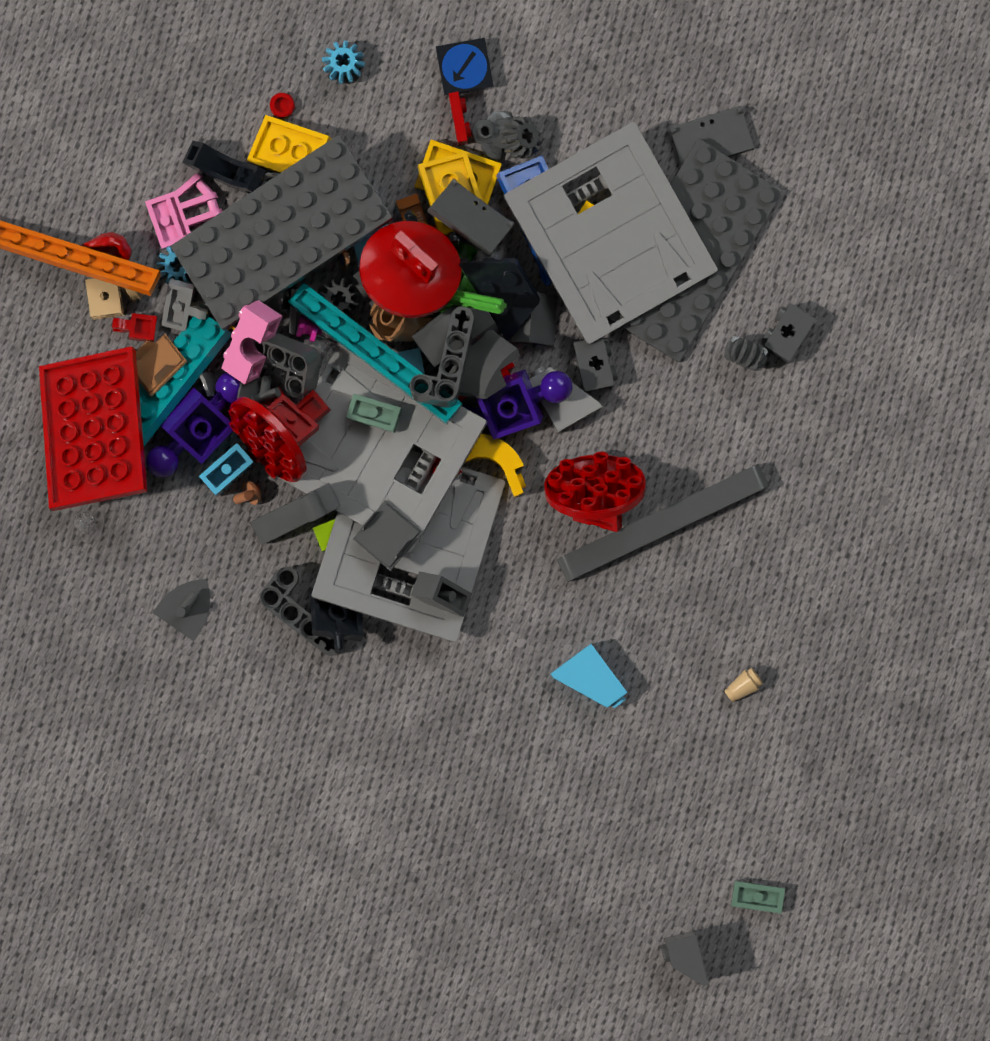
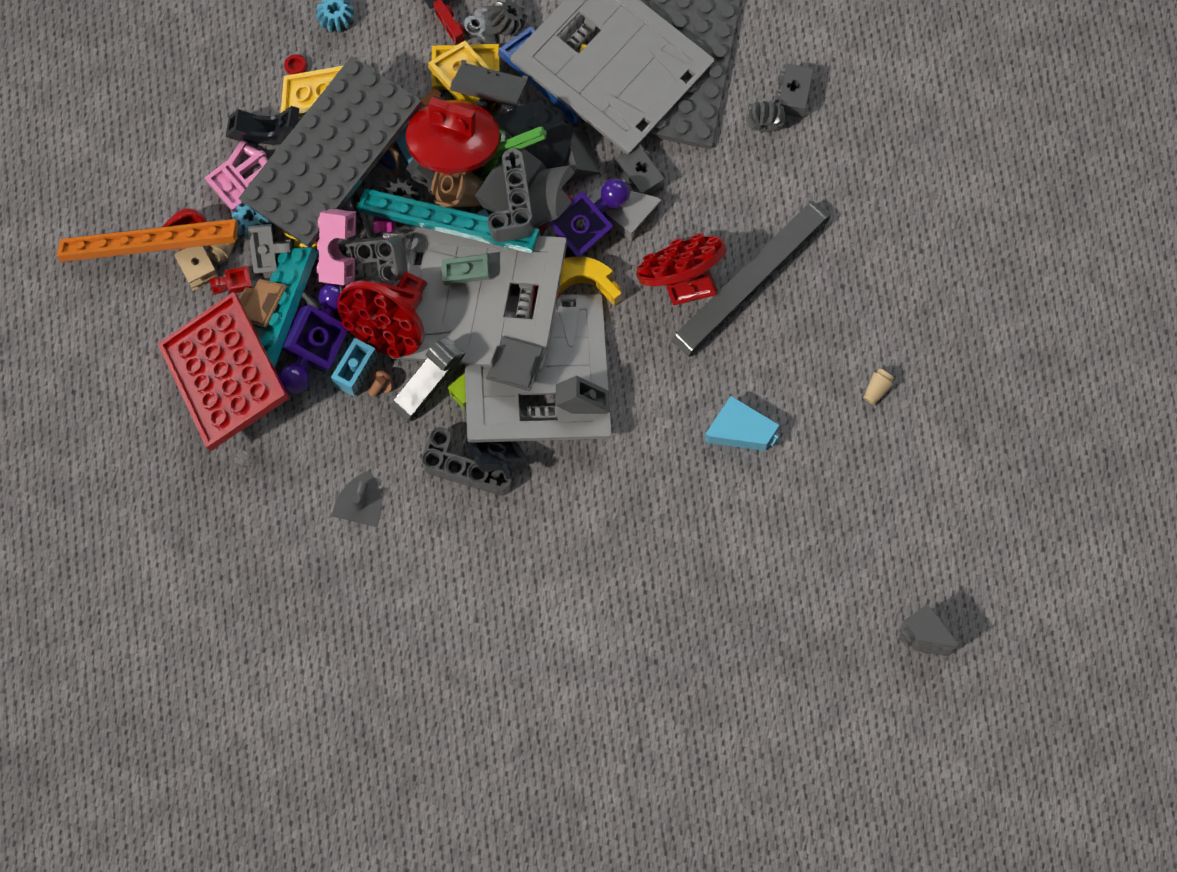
camera: 15 degrees left, 15 degrees down
(757, 897) = (967, 561): sand green plate -> none

